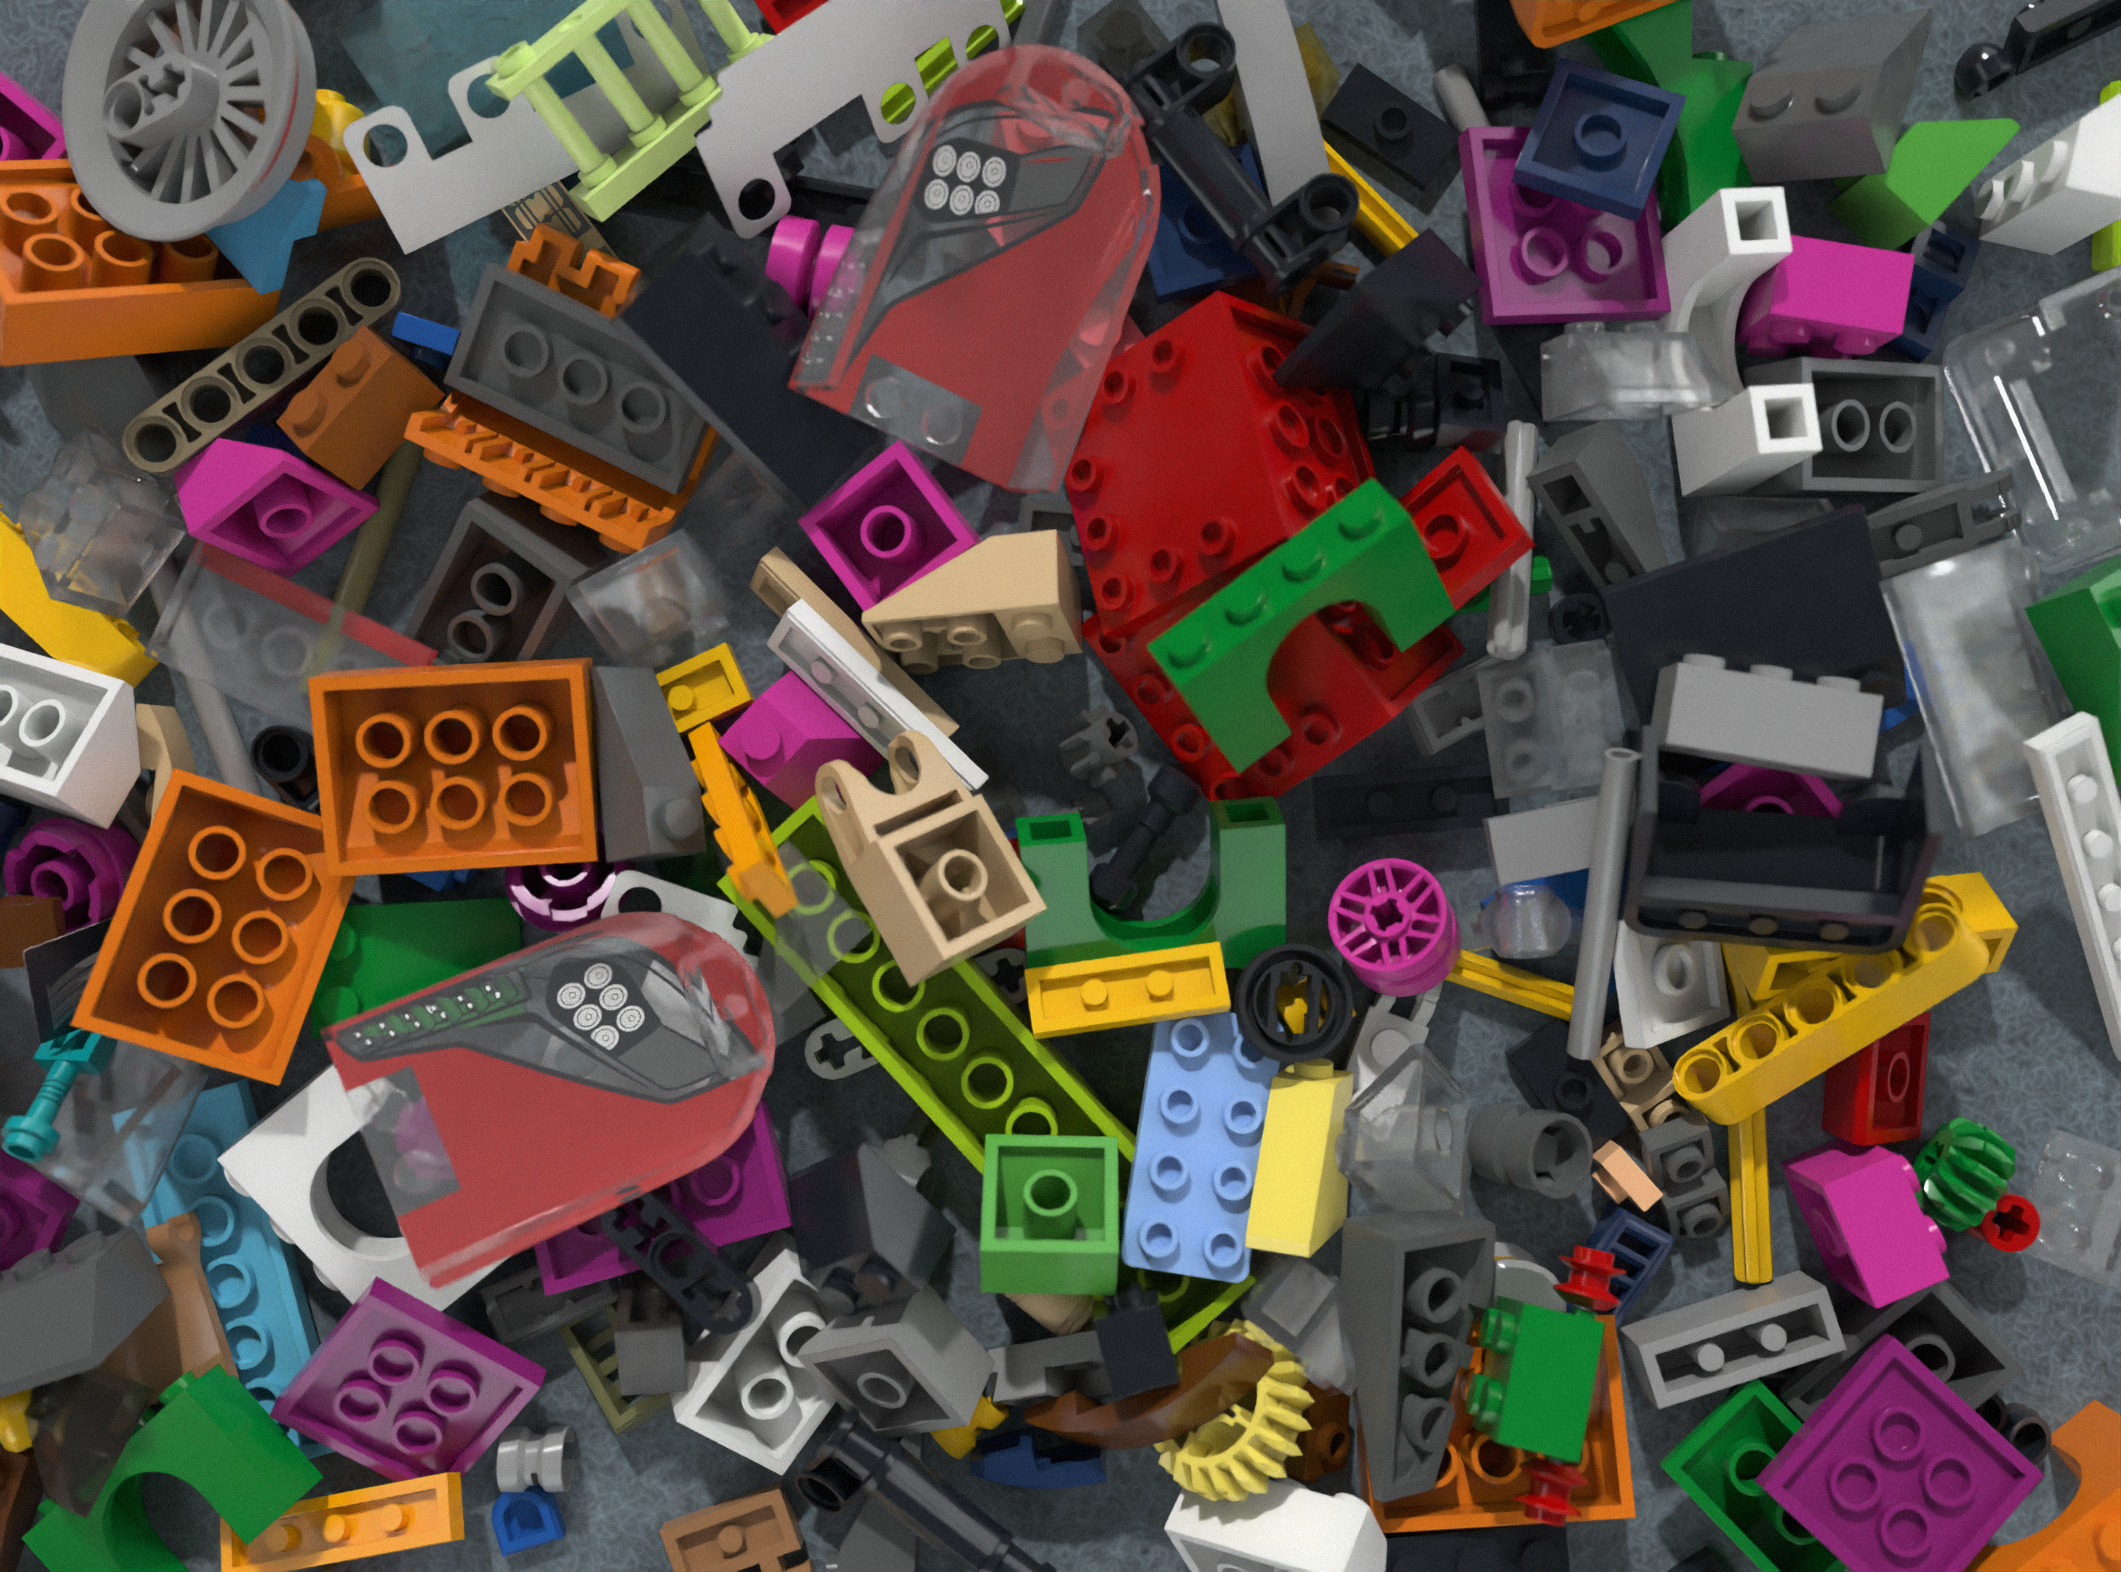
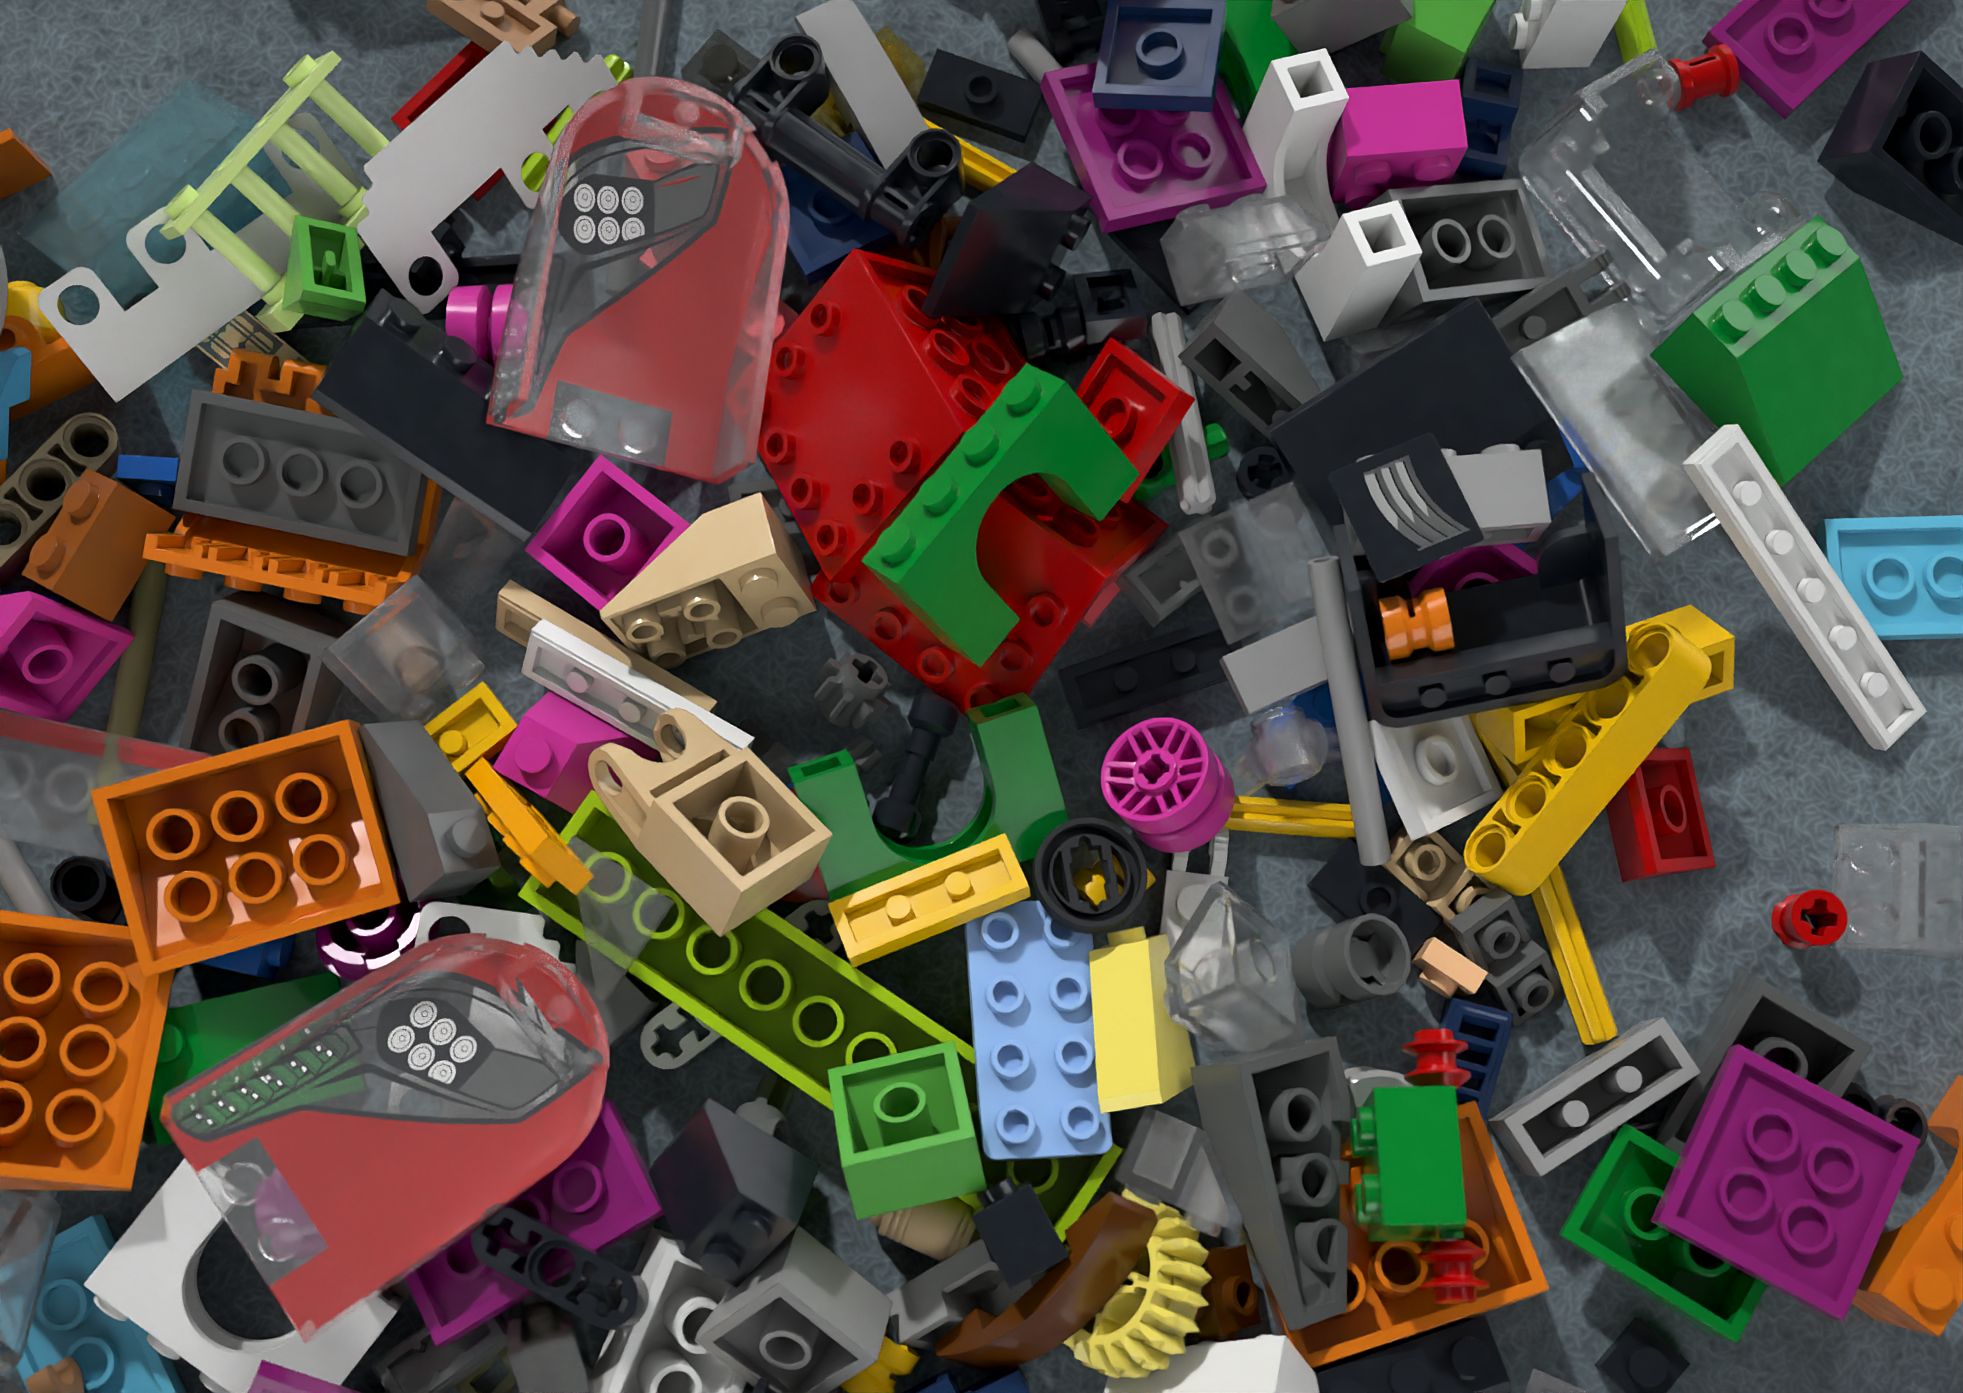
camera: 10 degrees left, 10 degrees down
(652, 166) = (324, 270): none -> bright green slope
(1698, 840) = (1416, 623): none -> orange wheel
(1725, 723) = (1406, 507): none -> black sticker
(1867, 1220) = (1683, 946): dark pink brick -> none
(1962, 1173) = (1758, 884): green gear -> none

